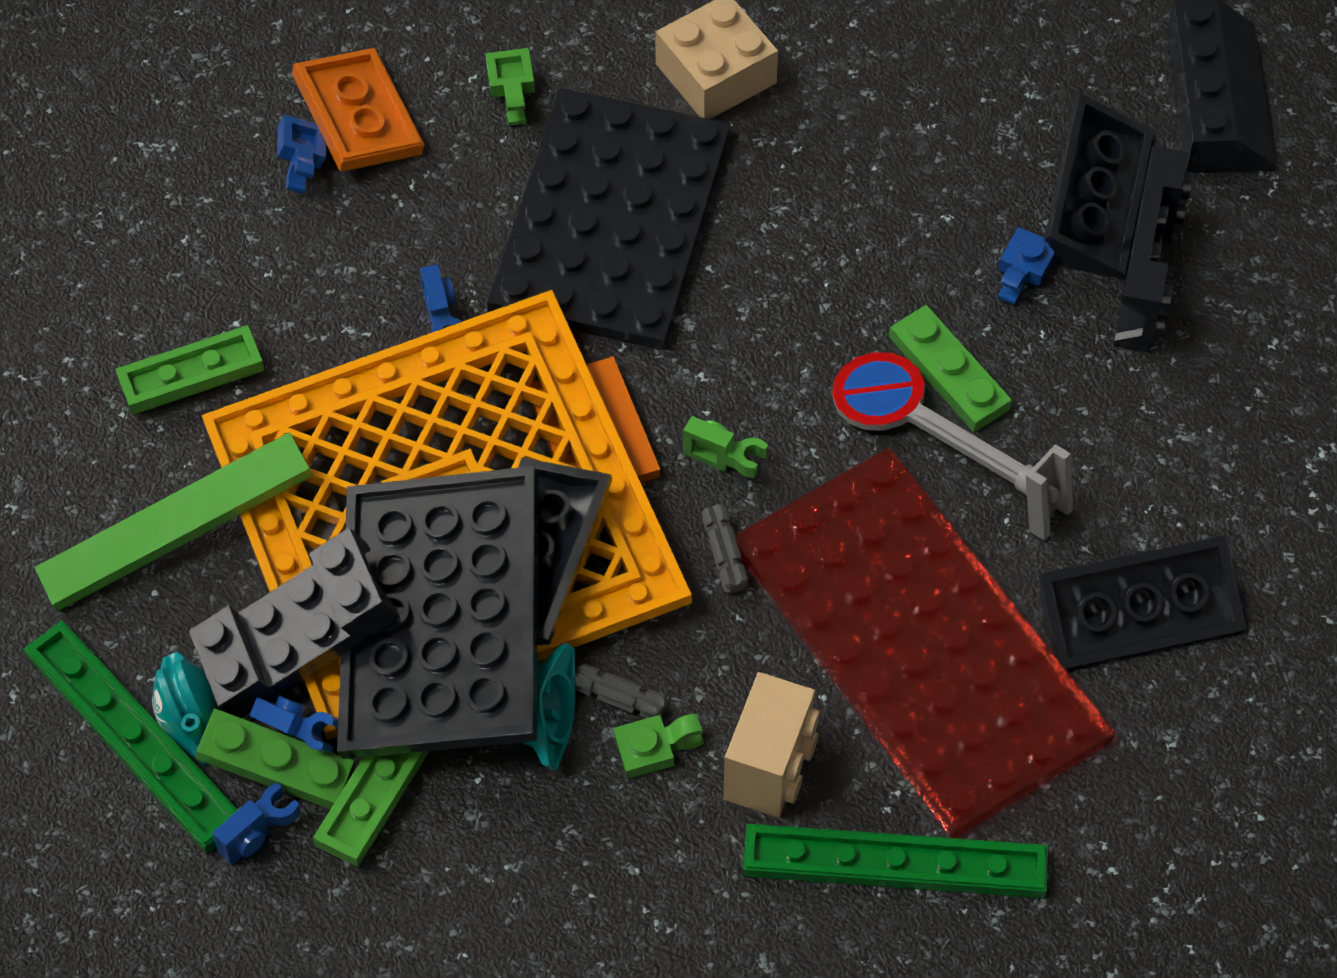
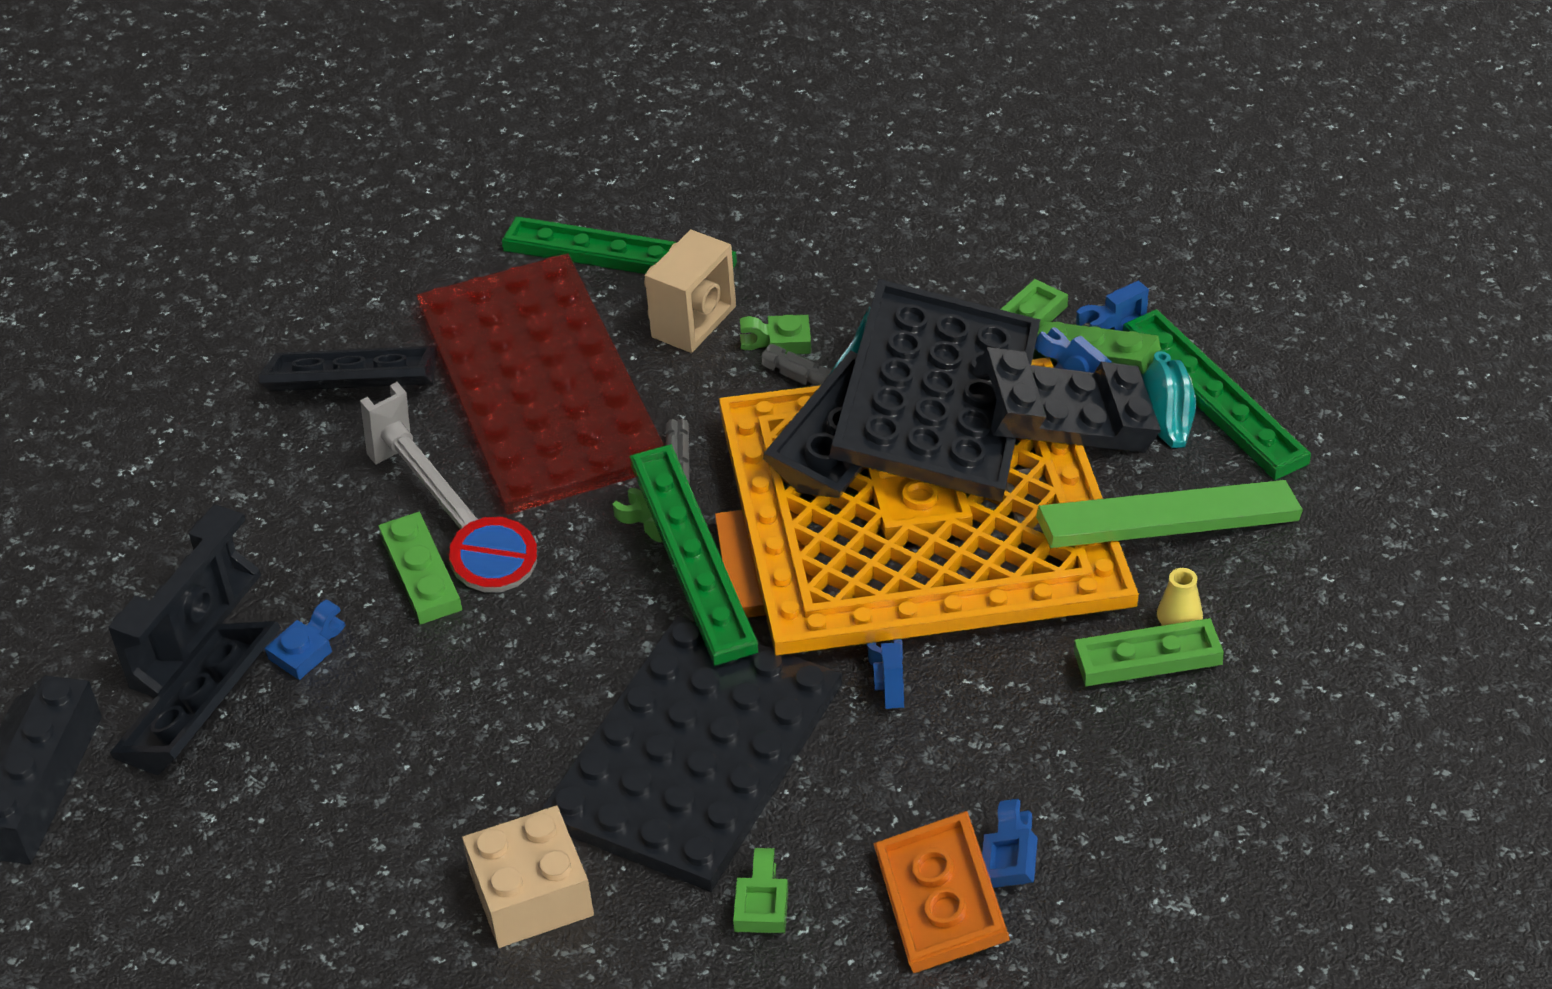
camera: 165 degrees left, 15 degrees down
(159, 419) = (1180, 599): none -> light yellow cone
(663, 378) = (694, 555): none -> green tile

